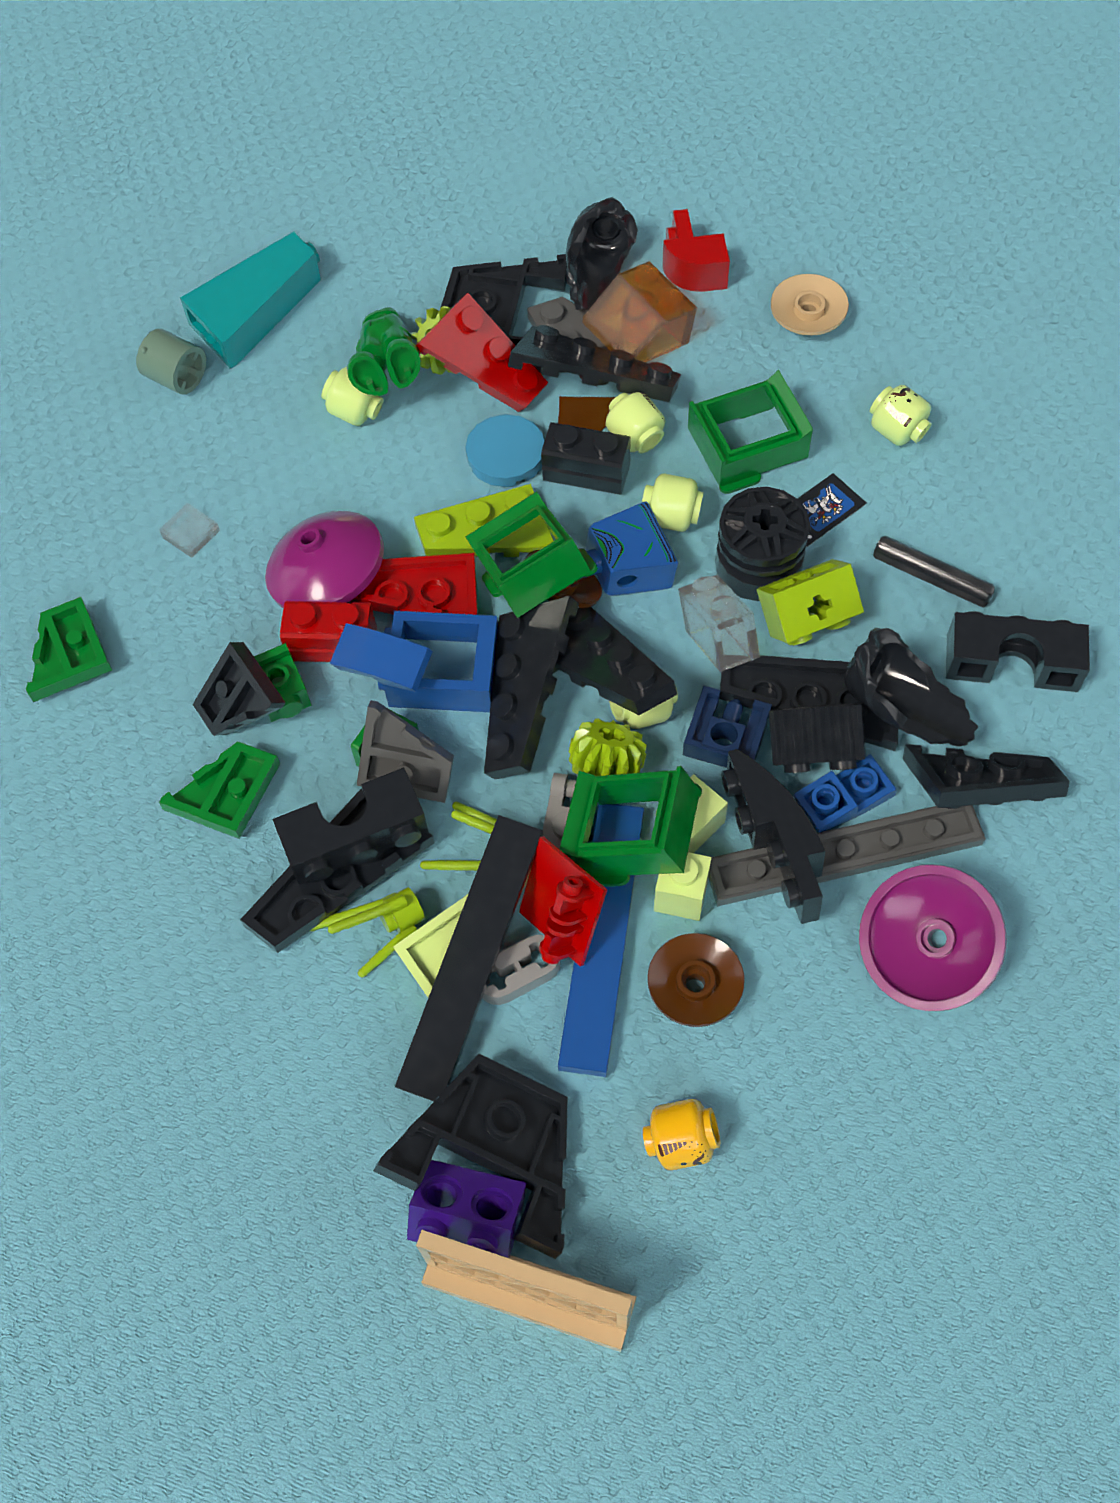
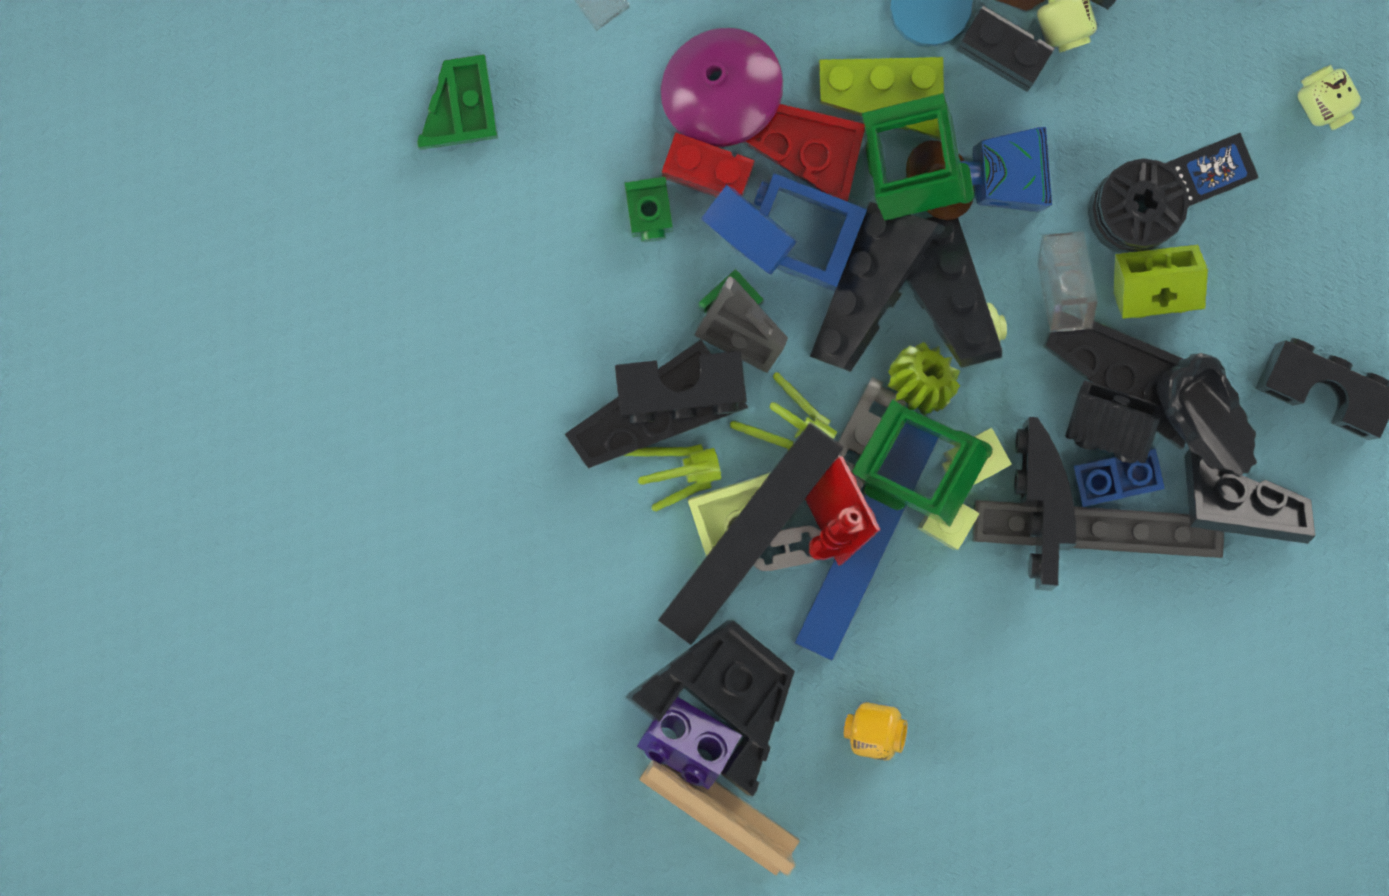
camera: 15 degrees right, 25 degrees up
(225, 790) = (577, 300): green wing -> none
(236, 692) = (609, 215): black wing -> none
(674, 501) = (1072, 128): yellowish green head -> none
(701, 959) = (952, 611): reddish brown dish -> none
(706, 728) = (1051, 399): dark blue brick -> none
(744, 465) = (1150, 108): green piece -> none
(899, 932) = (1117, 653): magenta dish -> none
(934, 571) = (1289, 277): black axle -> none

